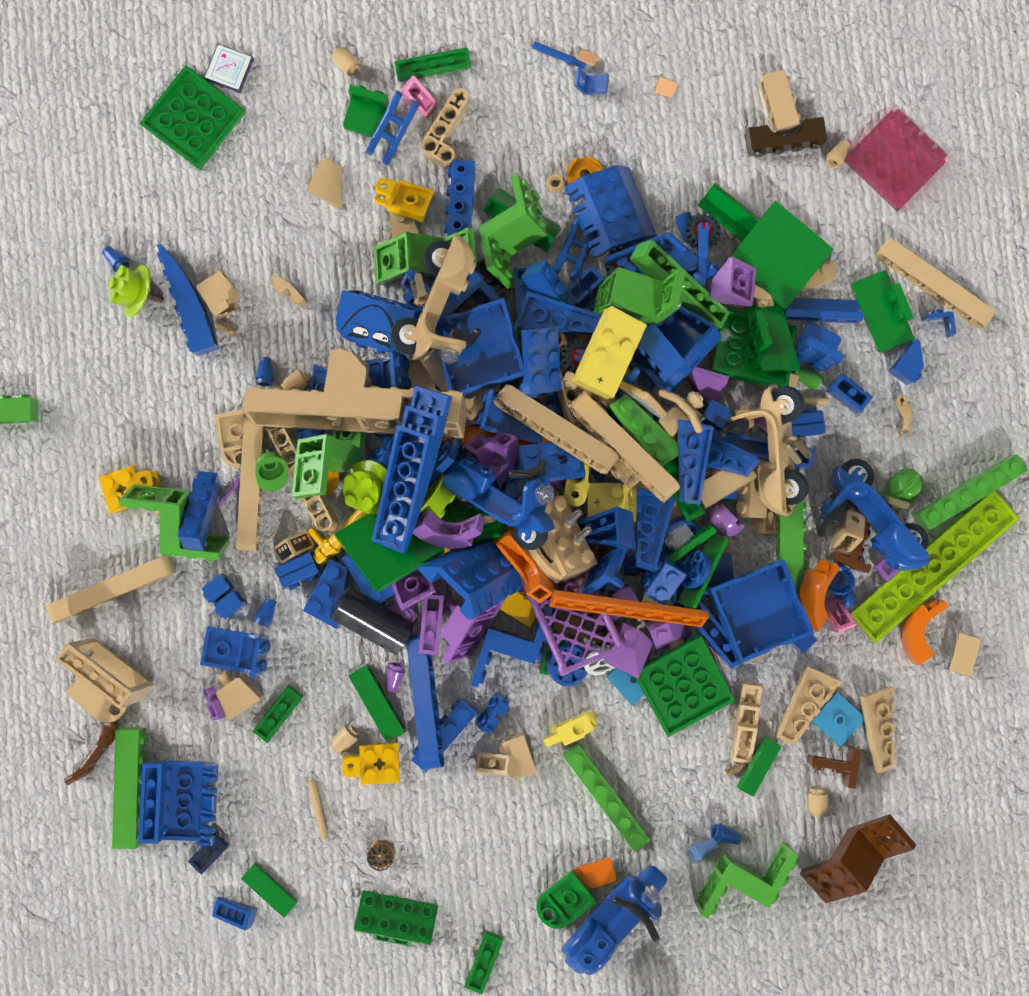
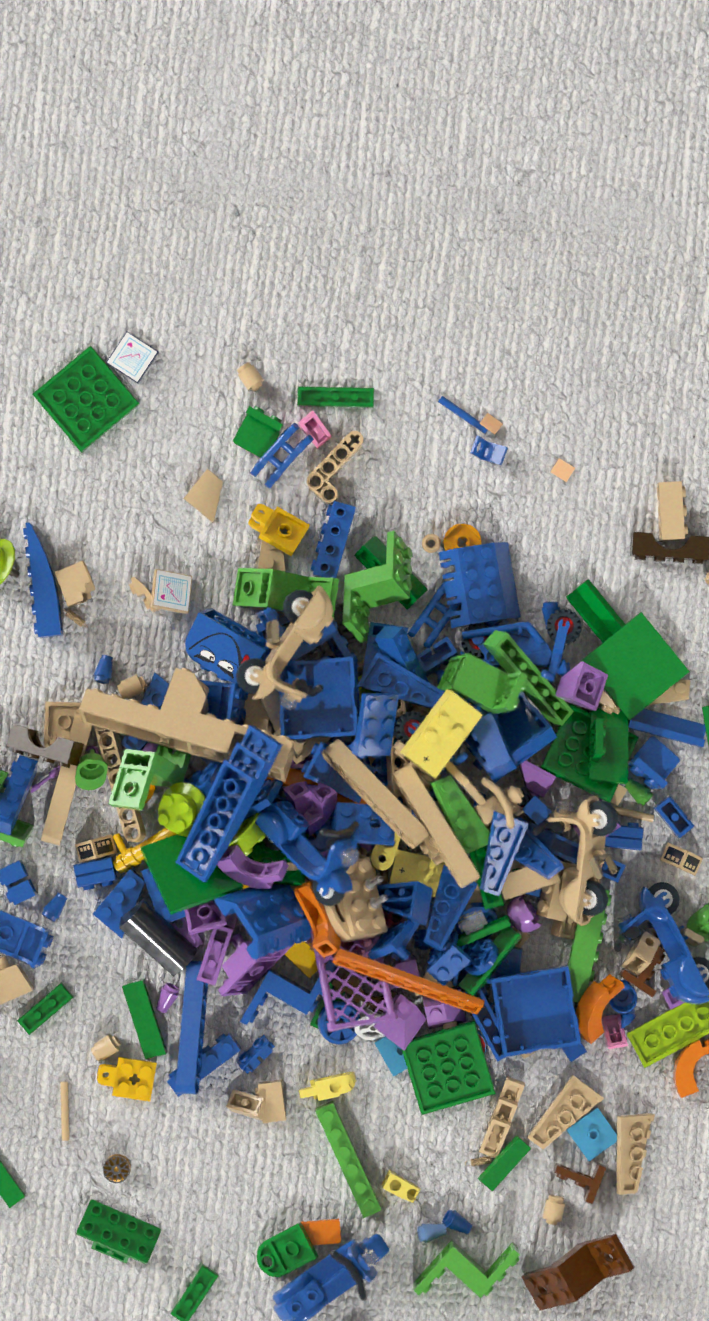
camera: 15 degrees right, 0 degrees up
(236, 456) = (62, 750): none -> arch
(313, 281) = (171, 591): none -> white tile
(662, 812) = (400, 1187): none -> light yellow leg
(863, 433) = (681, 859): none -> slope

